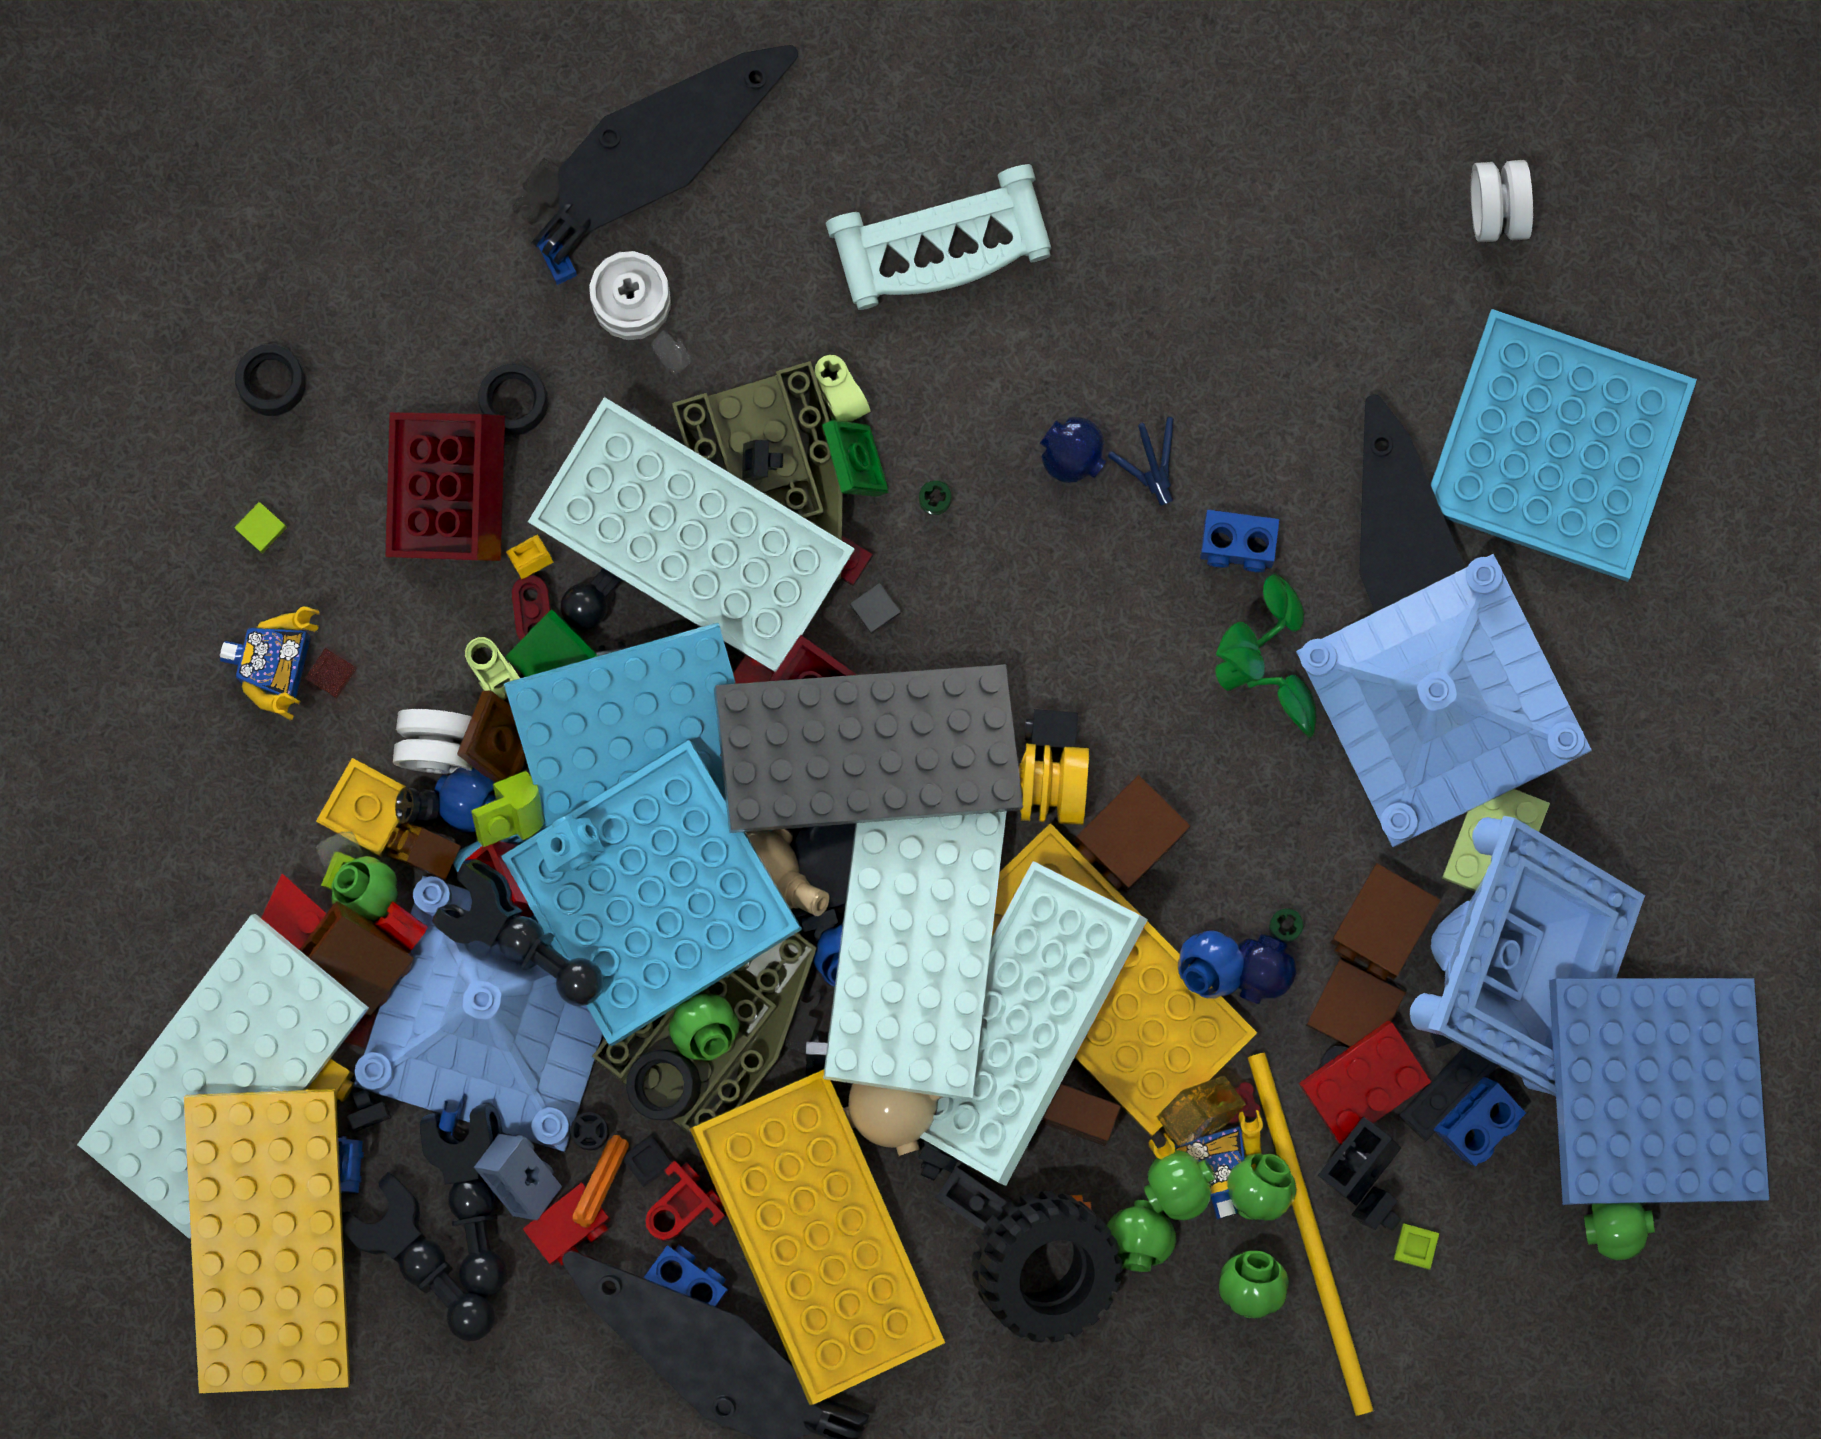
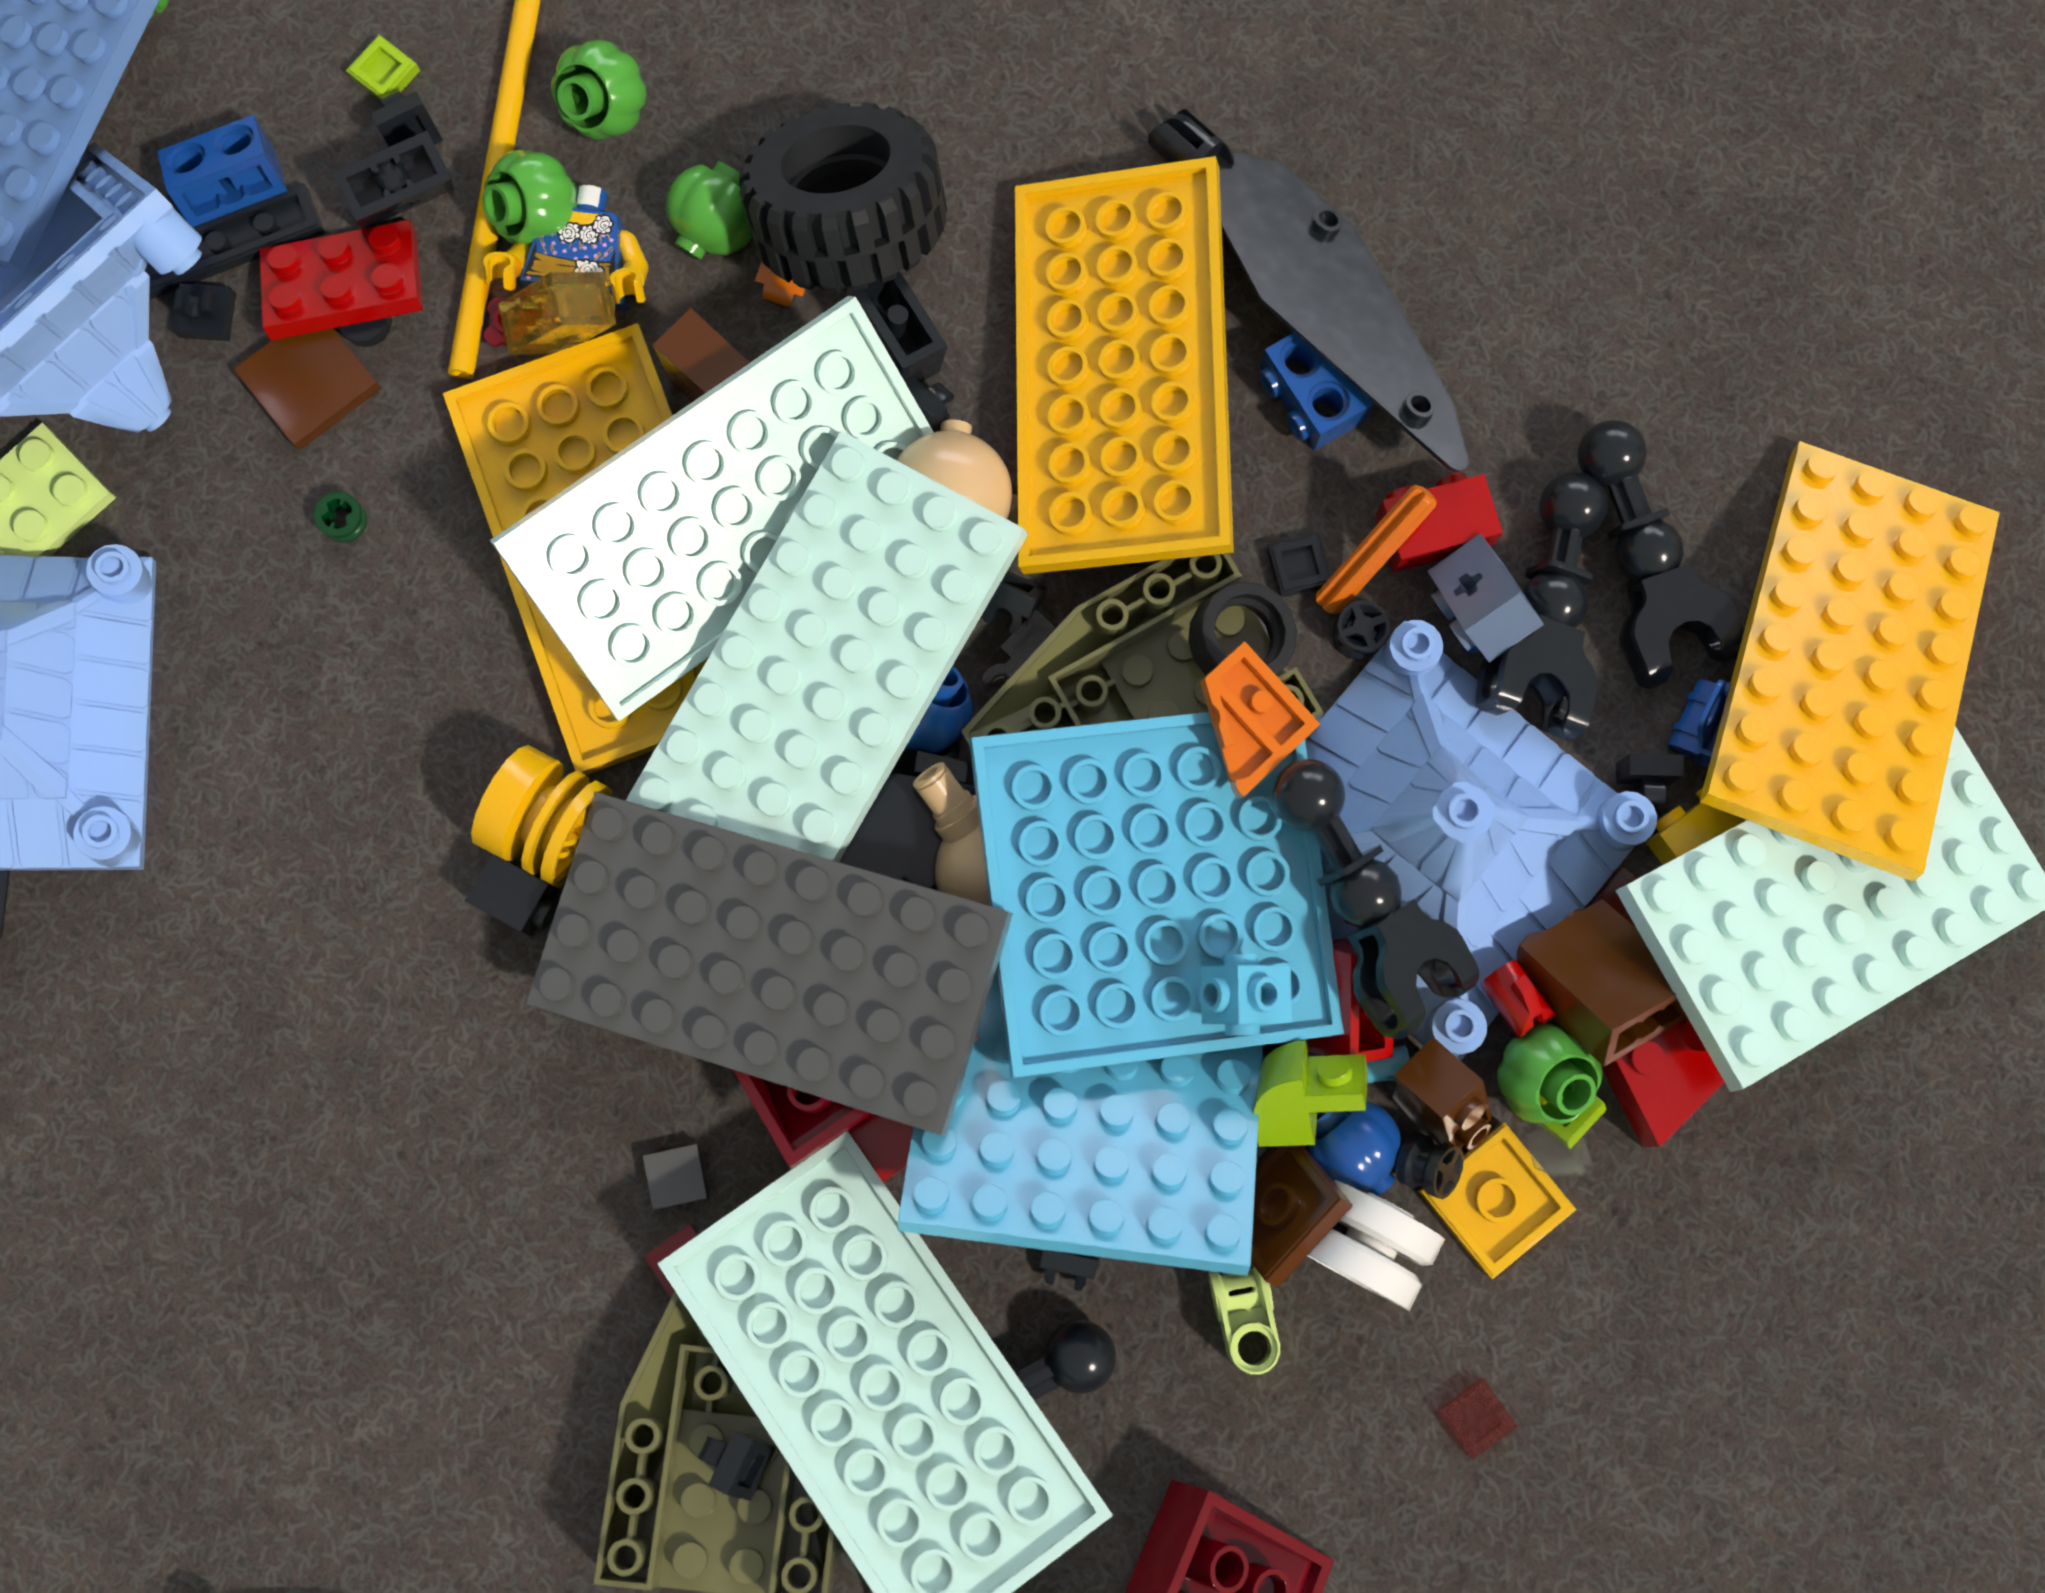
camera: 155 degrees left, 0 degrees up
(273, 660) = (1558, 1471): torso -> none
(449, 1120) = (1554, 709): blue piece -> none
(527, 612) = (1157, 1382): dark red plate -> none
(529, 556) = (1127, 1466): yellow tile -> none
(548, 647) = (1153, 1306): green tile -> none
(632, 1015) = (1253, 717): none -> orange wing
(685, 1202) = (1273, 488): red pin -> none
(704, 1027) = (1156, 678): bright green plant -> none
(842, 396) = (575, 1514): yellowish green piece -> none
(855, 458) = (600, 1406): green tile -> none
(927, 489) = (524, 1317): dark green bush -> none
(1073, 450) = (293, 1284): clear blue plant -> none
(1131, 834) = (475, 712): reddish brown brick -> none
(1157, 477) = (202, 1193): dark blue plant -> none
(1179, 1185) = (629, 232): bright green plant -> none
(1213, 962) = (449, 495): blue plant -> none
(1239, 530) = (130, 1061): blue brick -> none
(1247, 666) = (186, 864): green plant -> none
(1266, 969) = (395, 471): clear blue plant -> none
(1384, 923) = (211, 463): reddish brown brick -> none

